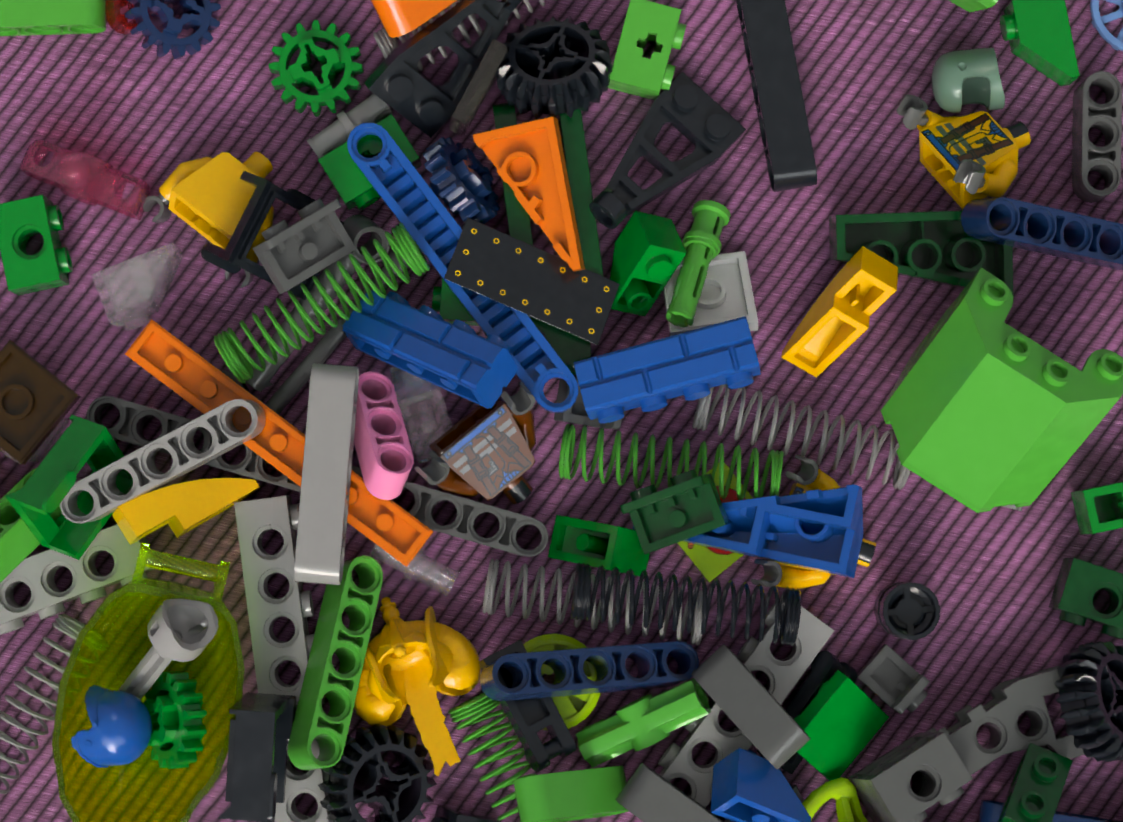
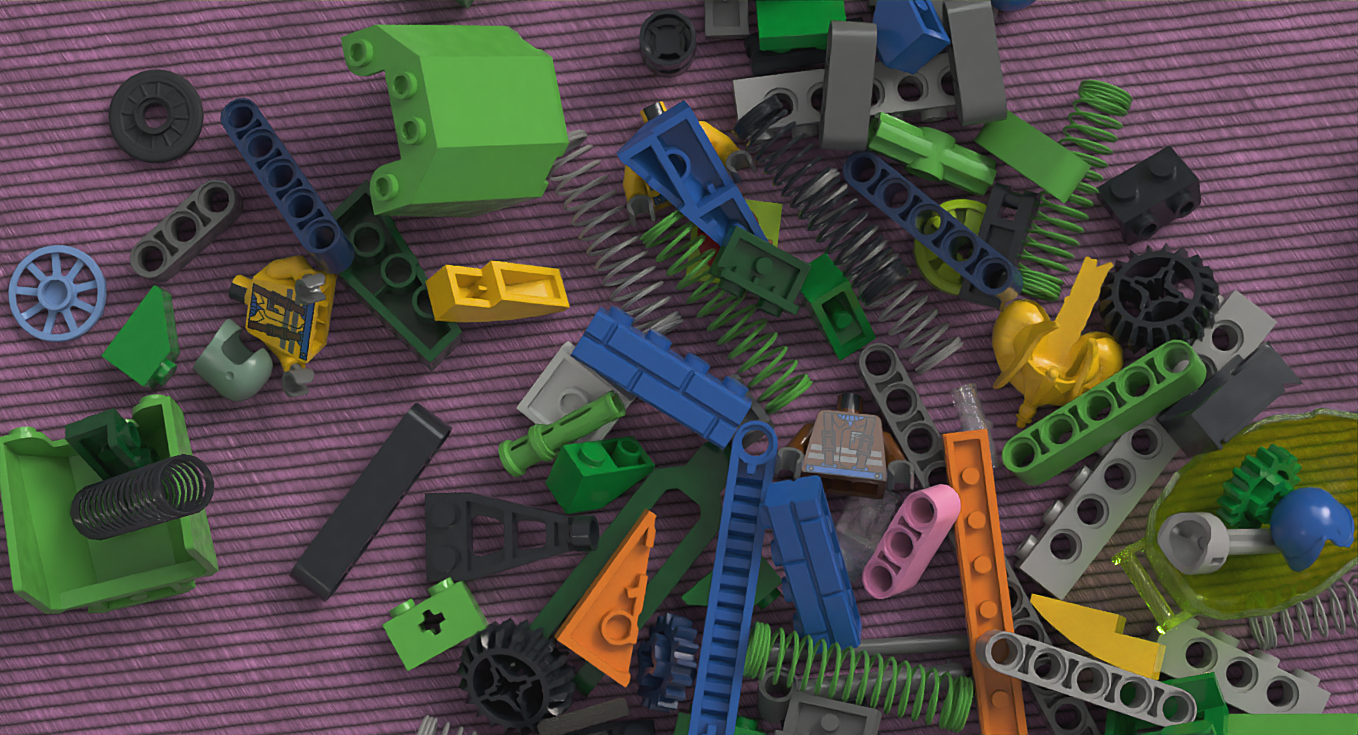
camera: 130 degrees left, 0 degrees up
(326, 474) = (978, 550): light grey beam -> none
(531, 281) = (693, 538): black sticker -> none

